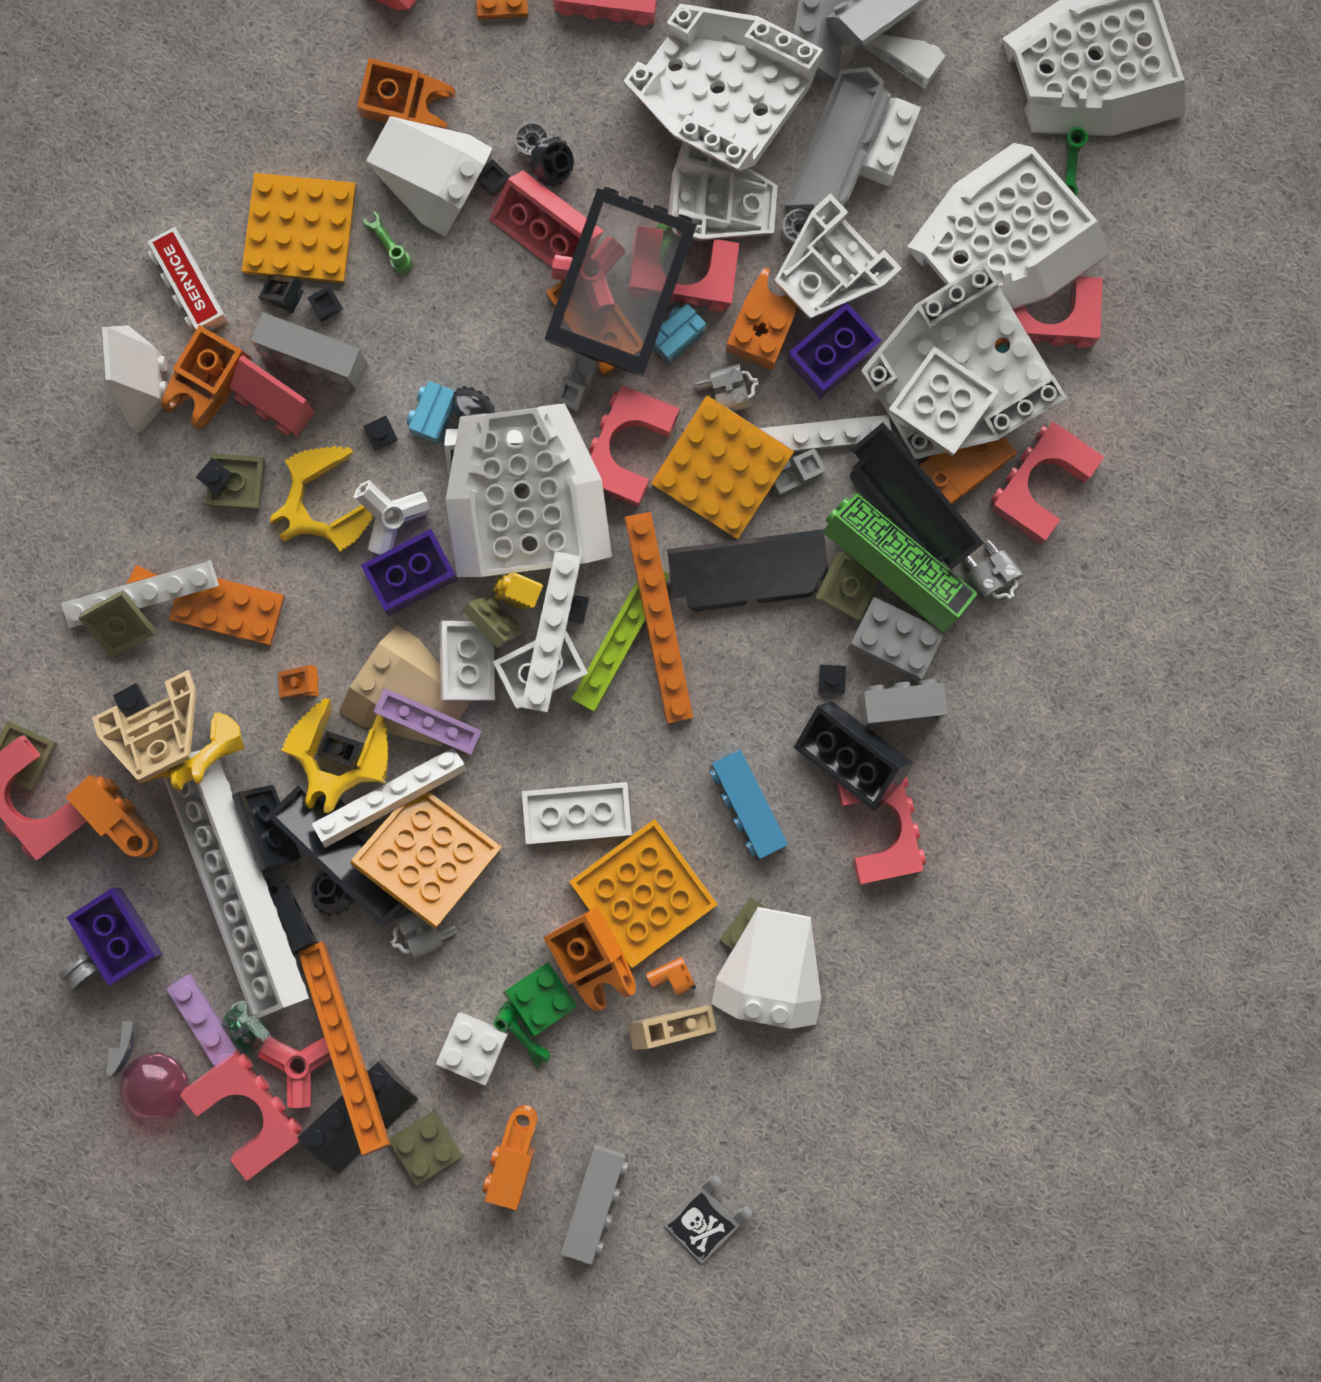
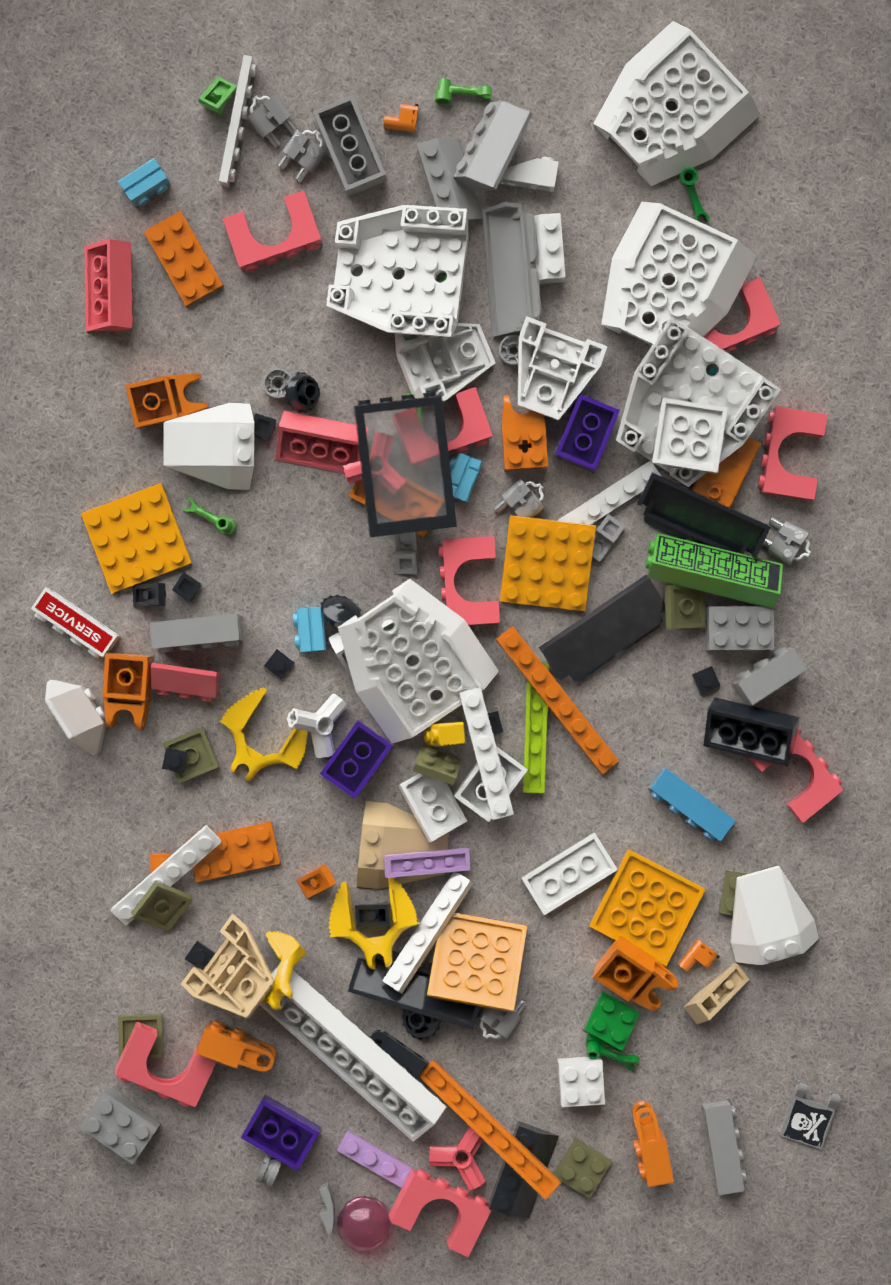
camera: 25 degrees left, 5 degrees up
(247, 1031) = (412, 1153): clear green plate -> none
(267, 840) = (355, 1008): black plate -> none

